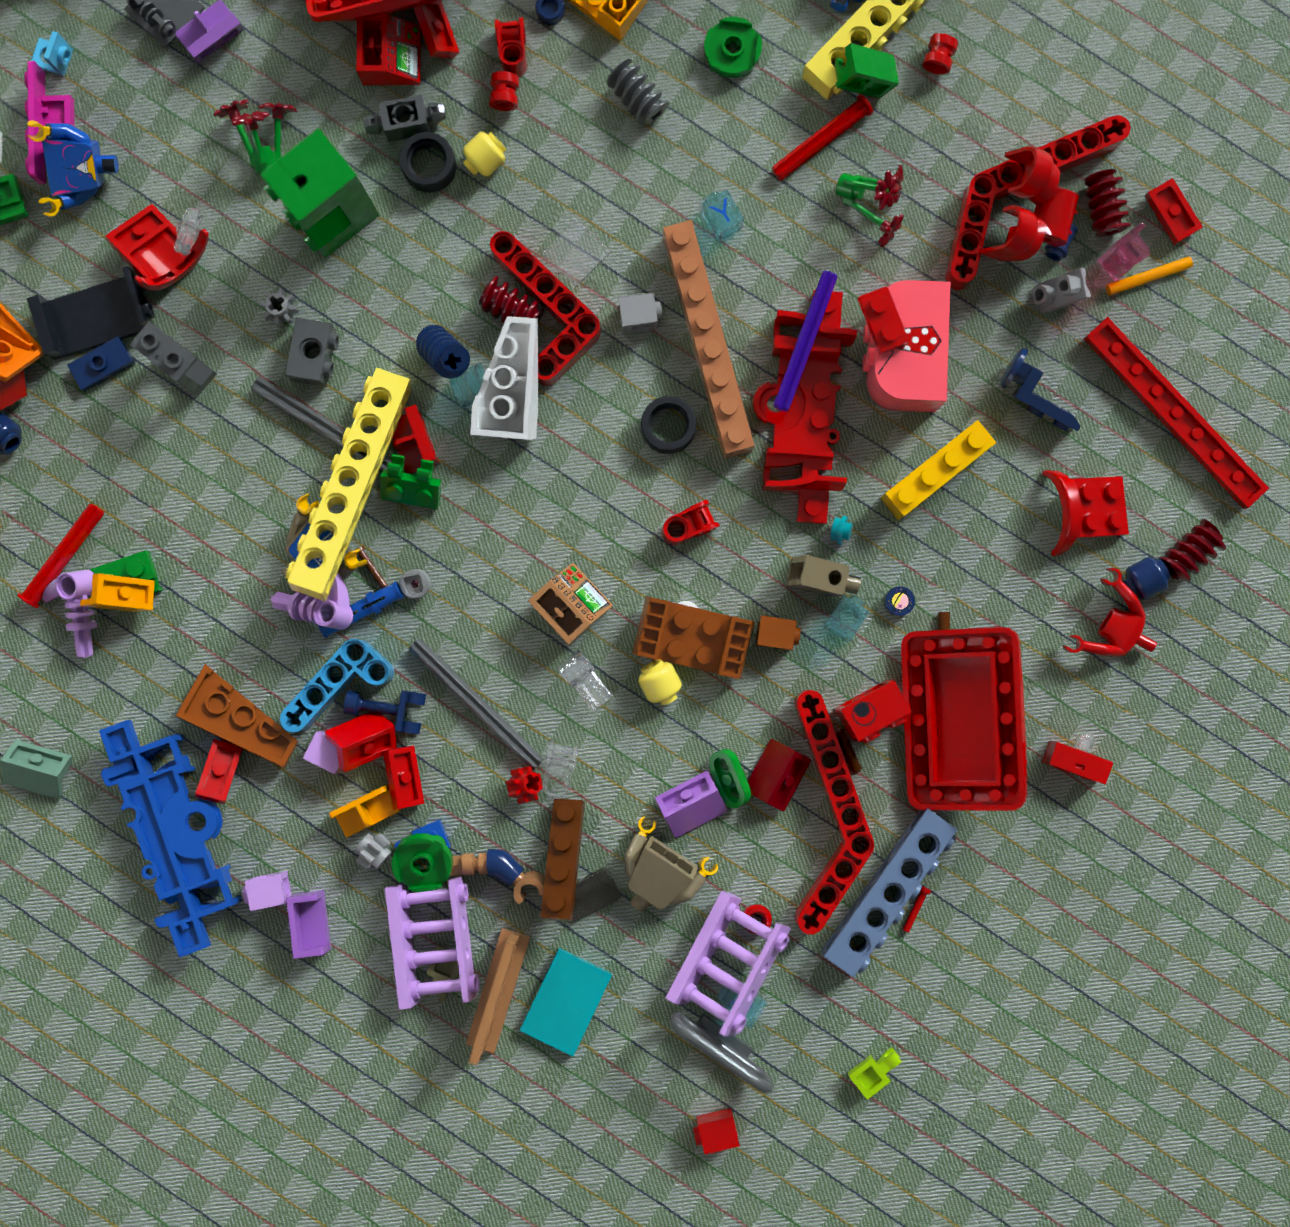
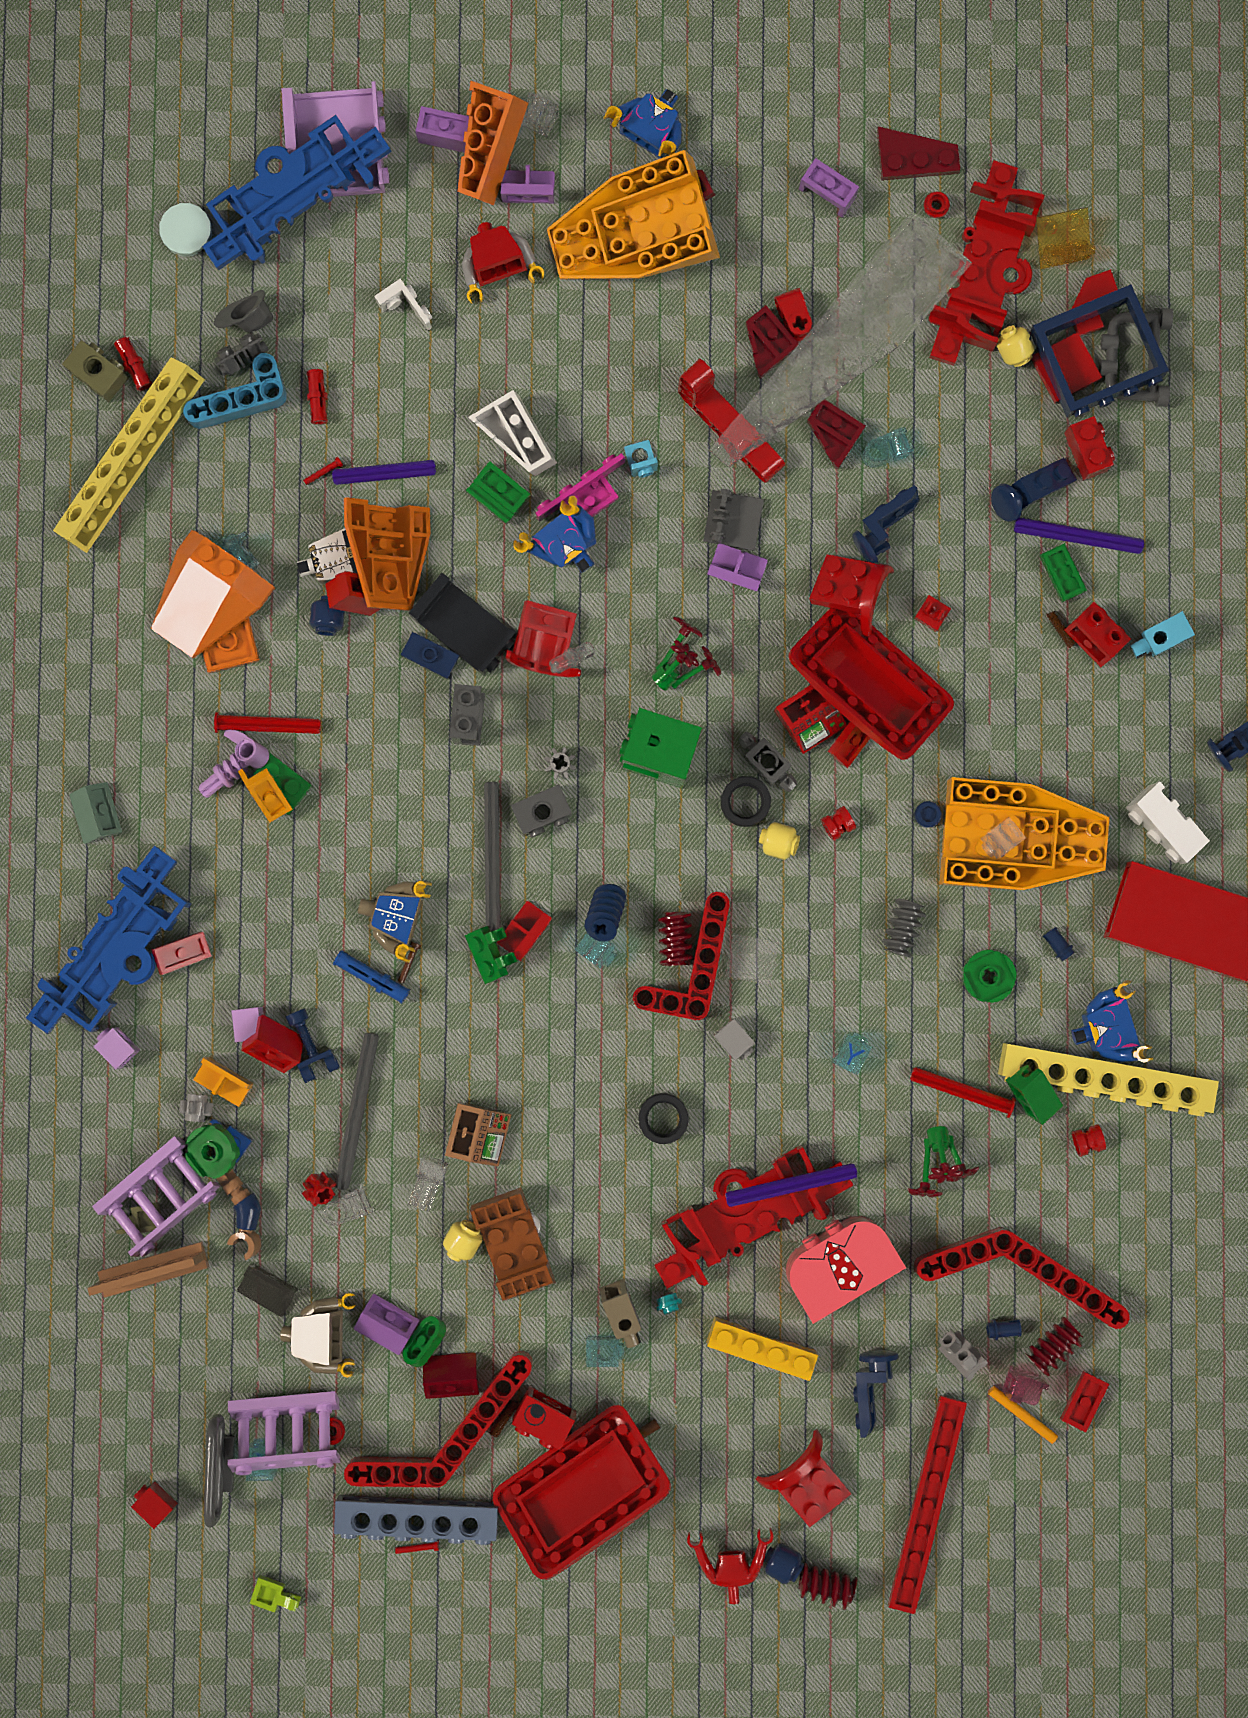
camera: 55 degrees right, 0 degrees up
(231, 717) = (227, 931): dark orange wing -> none
(308, 924) = (111, 1095): medium lavender panel -> none
(317, 611) = (348, 946): lavender piece -> none
(319, 581) = (552, 894): light yellow brick -> none
(329, 688) = (297, 994): dark azure beam -> none
(403, 777) = (266, 1093): red plate -> none
(414, 583) = (417, 1004): light grey tile -> none
(510, 384) = (607, 983): white wedge -> none
(511, 43) = (881, 802): red piece -> none
(562, 860) = (281, 1256): reddish brown plate -> none
(566, 1002) = (177, 1326): teal tile -> none
(691, 522) = (599, 1185): red piece -> none
(708, 339) = (747, 1107): nougat brick -> none
(777, 633) = (557, 1306): dark orange brick -> none
(883, 320) = (842, 1236): red plate -> none
(899, 601) = (643, 1383): tile -> none
(1052, 213) = (1013, 1310): red piece -> none
(1078, 759) = (610, 1599): red piece -> none

